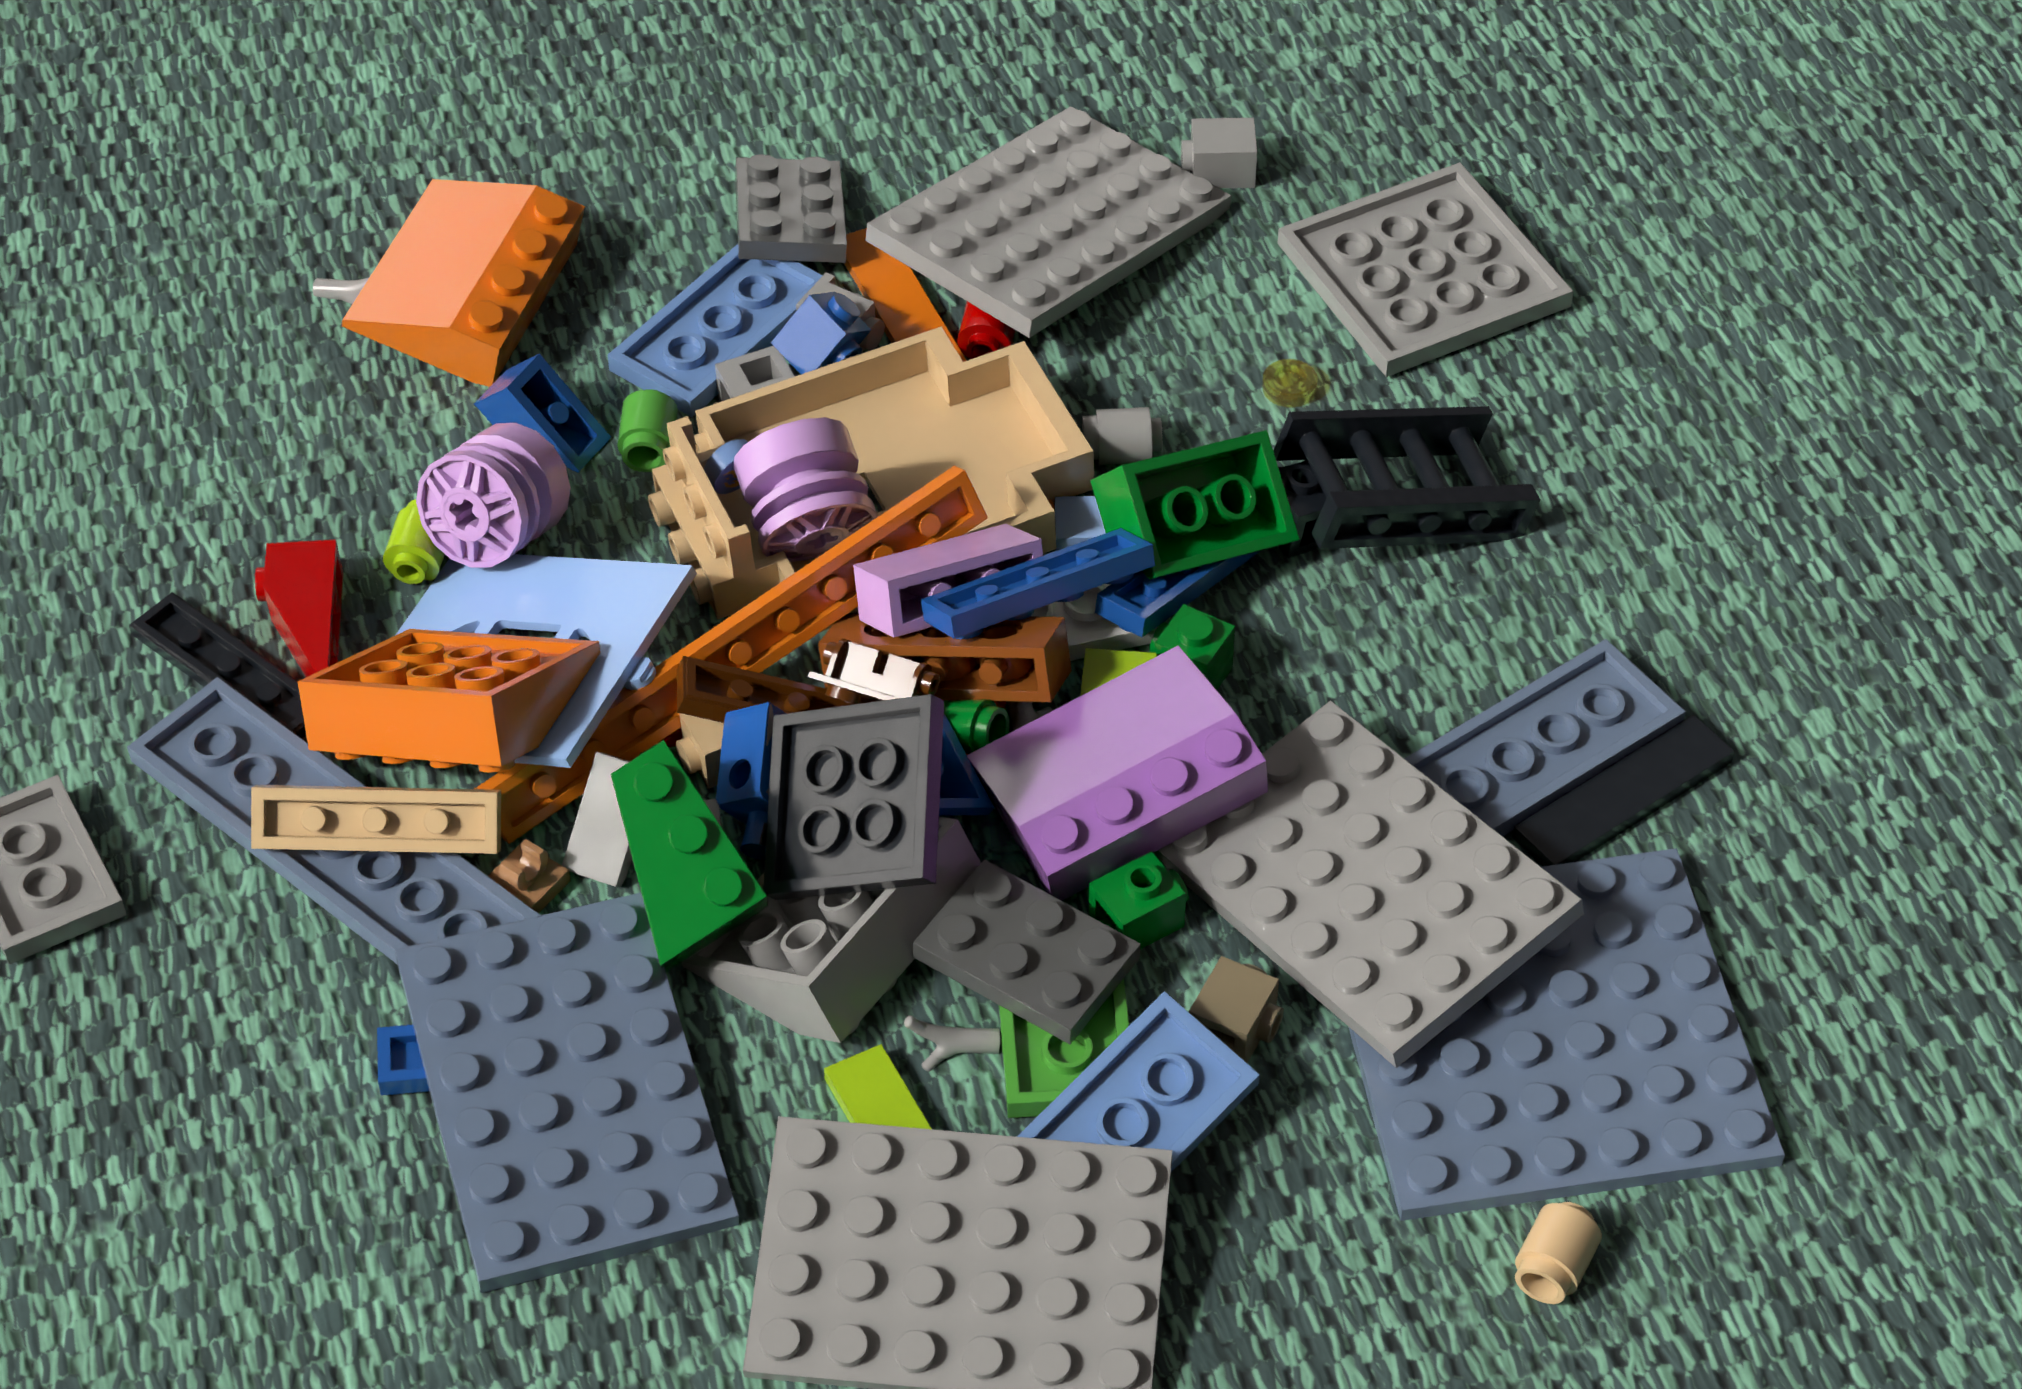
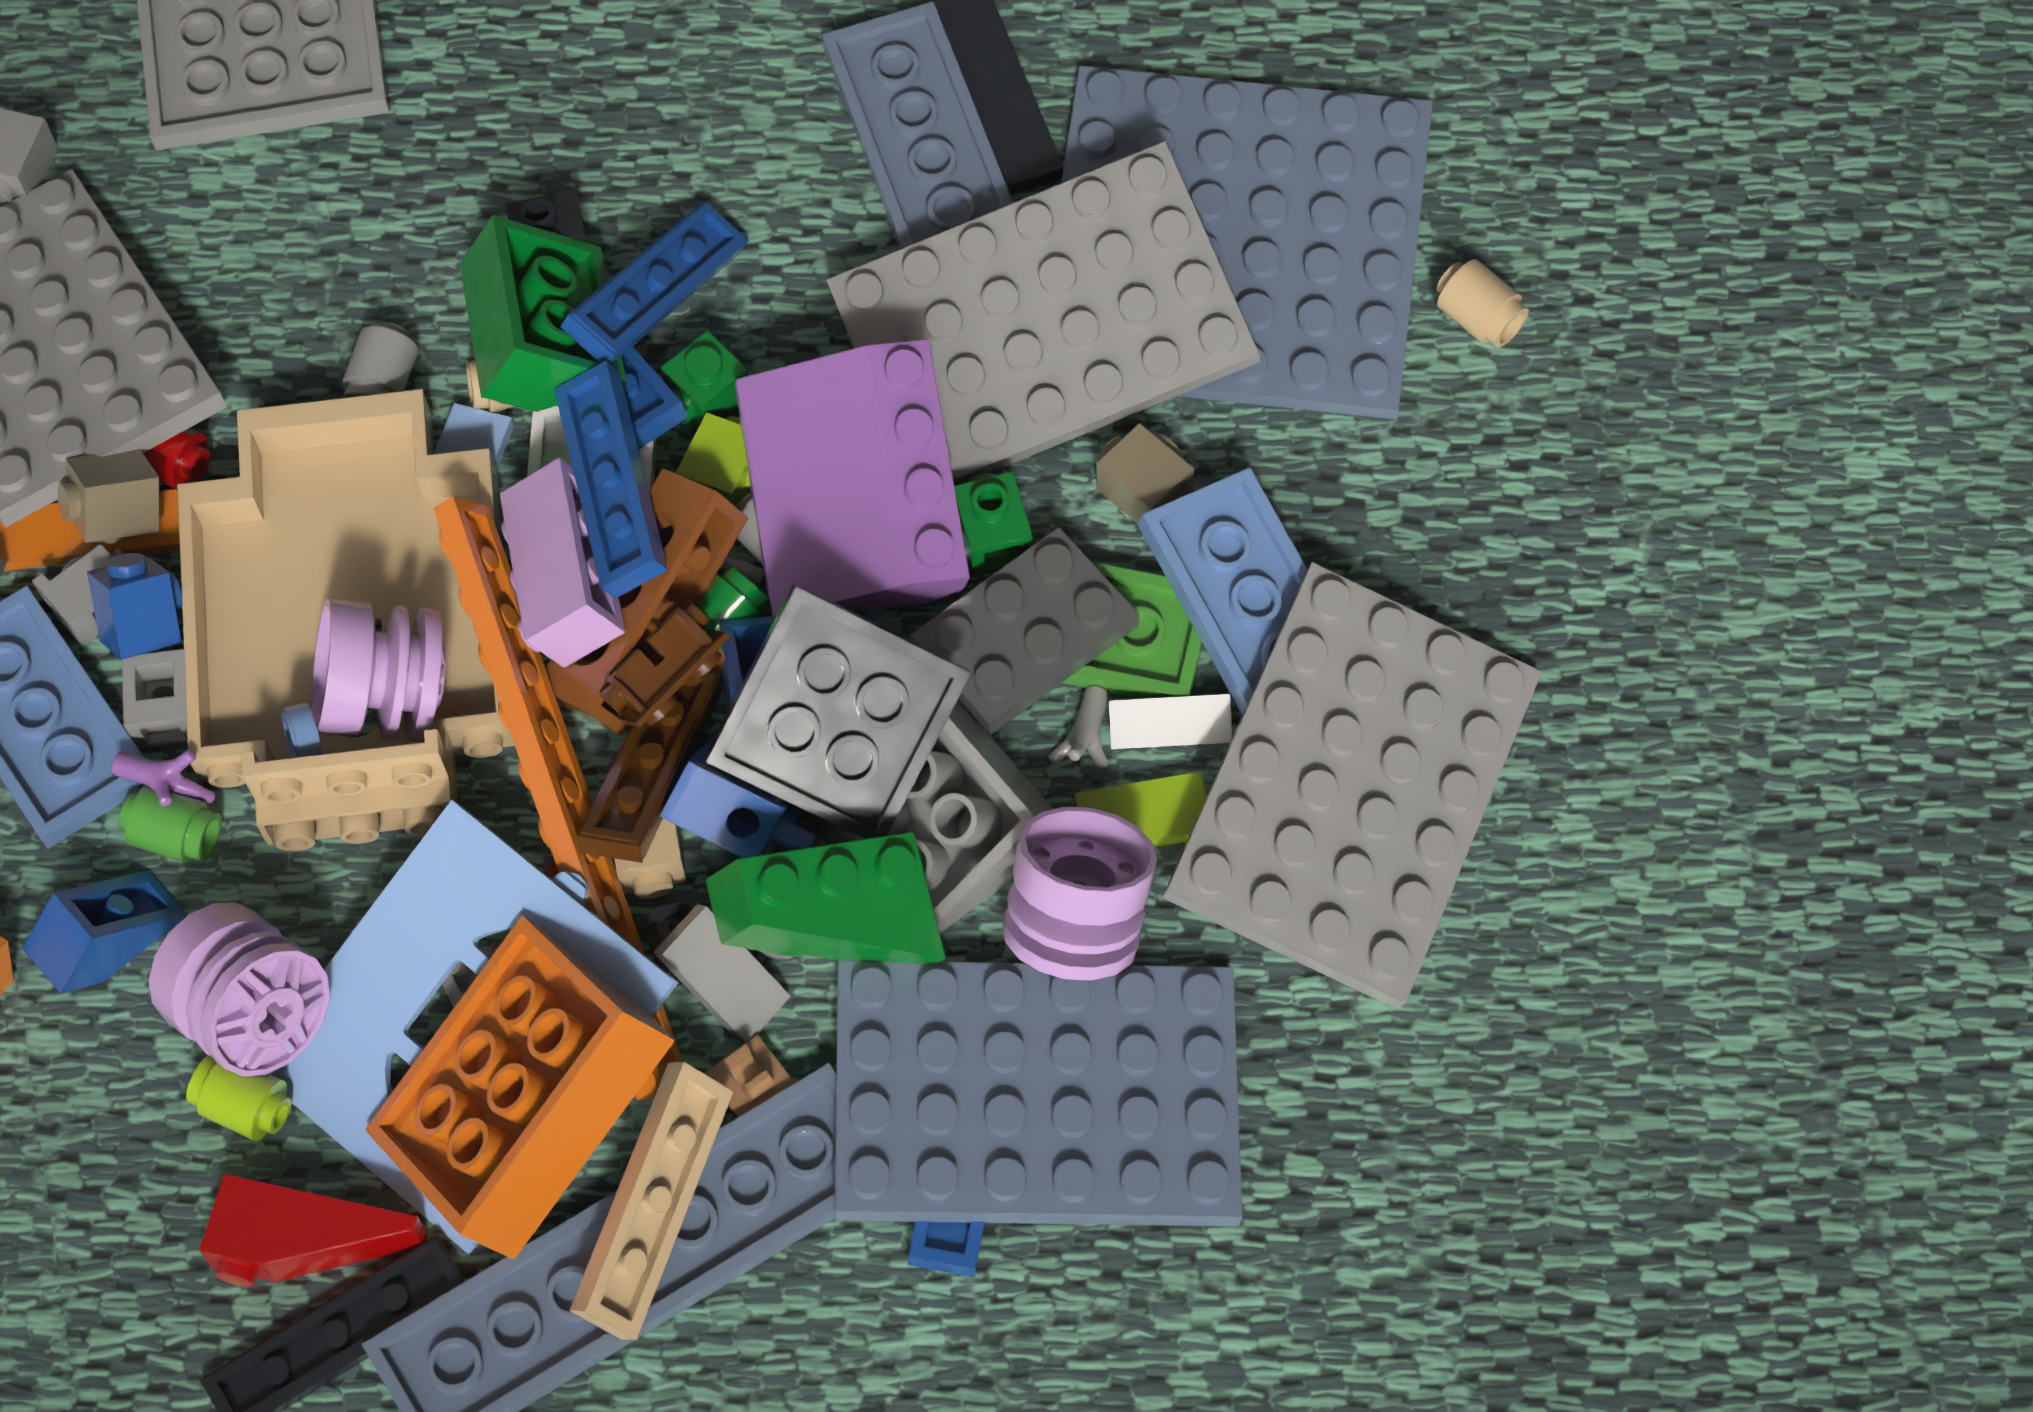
camera: 70 degrees left, 15 degrees up
(678, 399) = (161, 775): none -> medium lavender bar
(753, 1047) = (1079, 893): none -> lavender wheel
(914, 290) = (110, 496): none -> dark tan brick
(981, 1094) = (1170, 721): none -> white sticker
(1270, 579) = (654, 284): none -> blue tile
(1289, 383) = (360, 199): clear yellow tile -> none
(1413, 514) = (612, 146): black fence -> none

